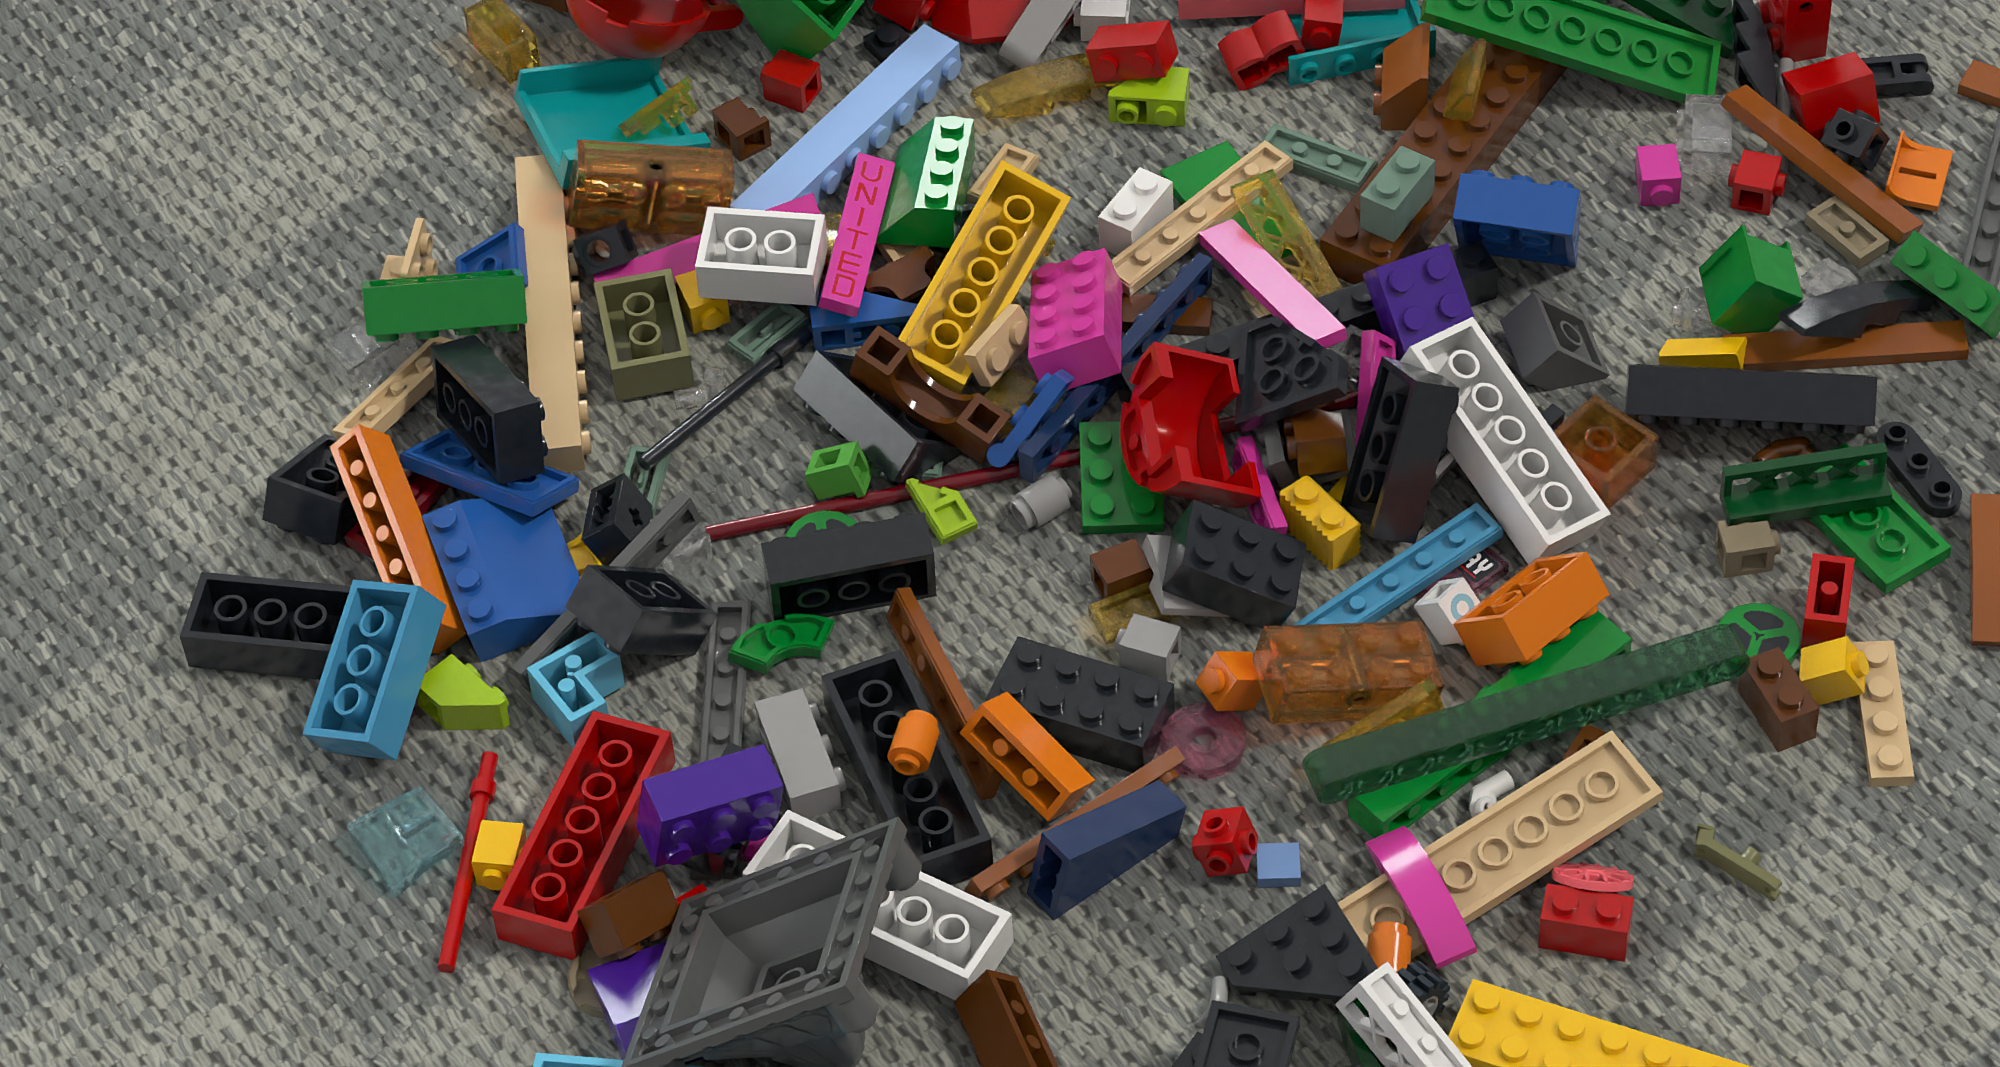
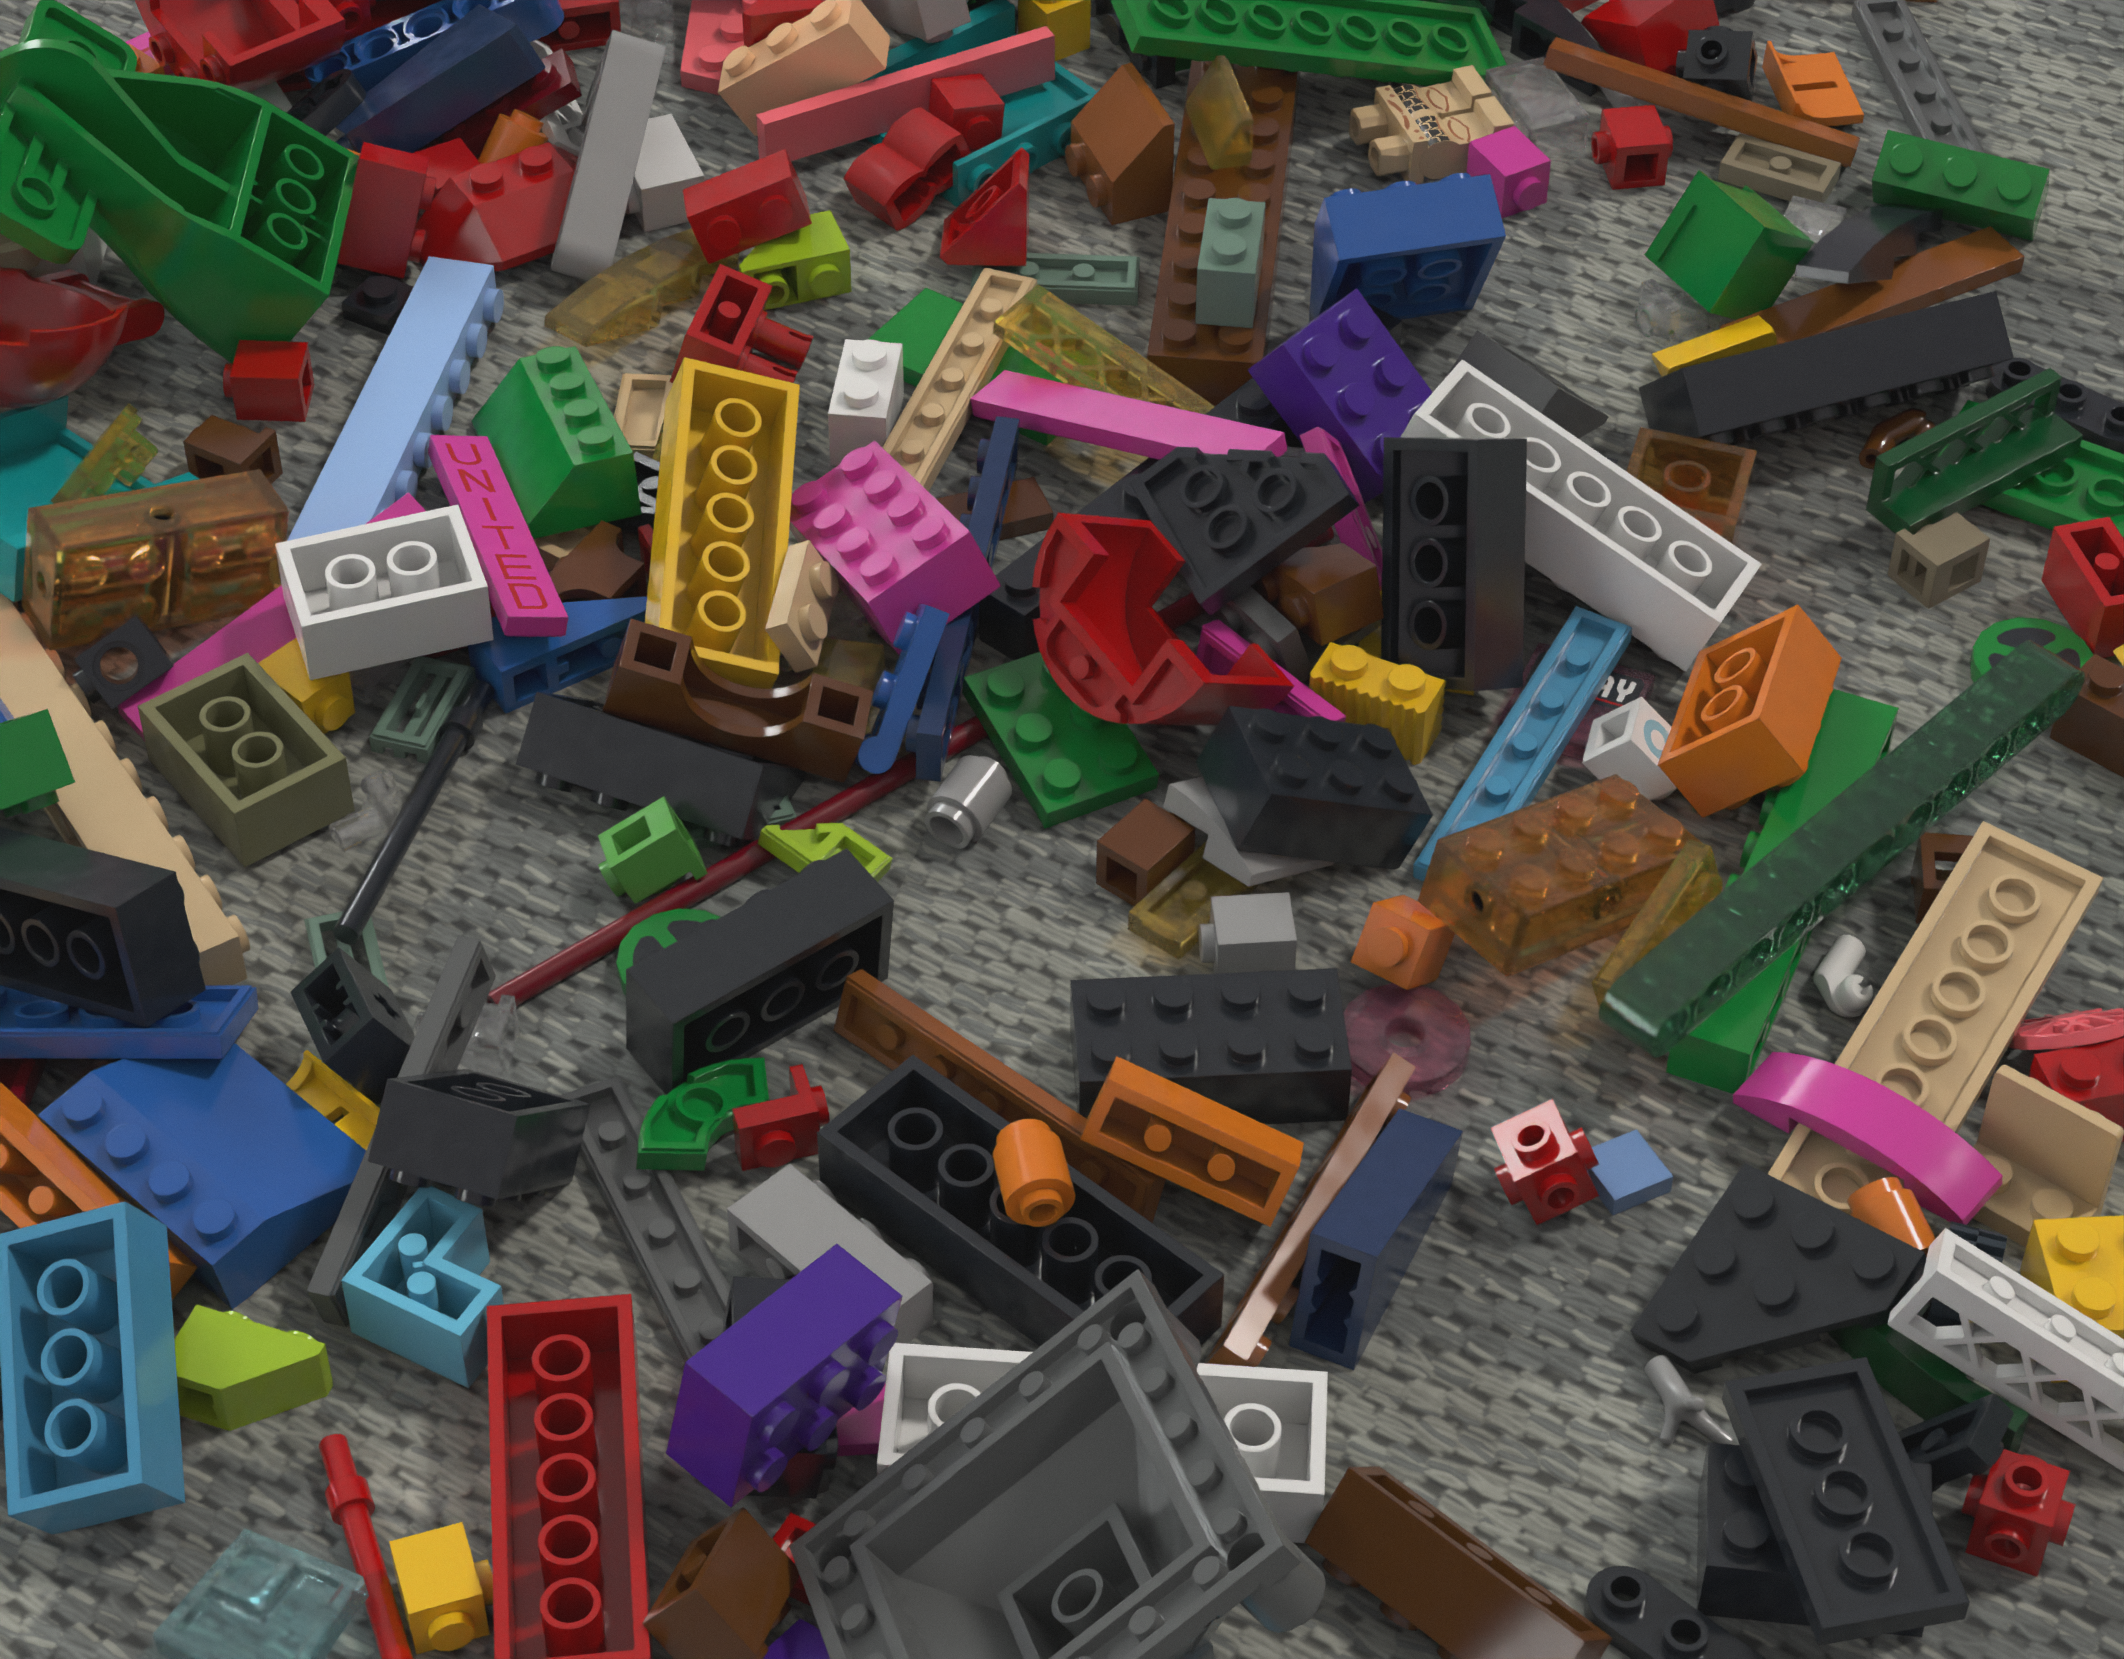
camera: 30 degrees left, 5 degrees down
(809, 663) = (783, 1127): none -> red bracket
(1075, 134) = (734, 324): none -> red brick
(1294, 108) = (993, 220): none -> red slope
(1510, 949) = (2048, 1150): none -> tan bracket
(1626, 121) = (1427, 127): none -> tan hips

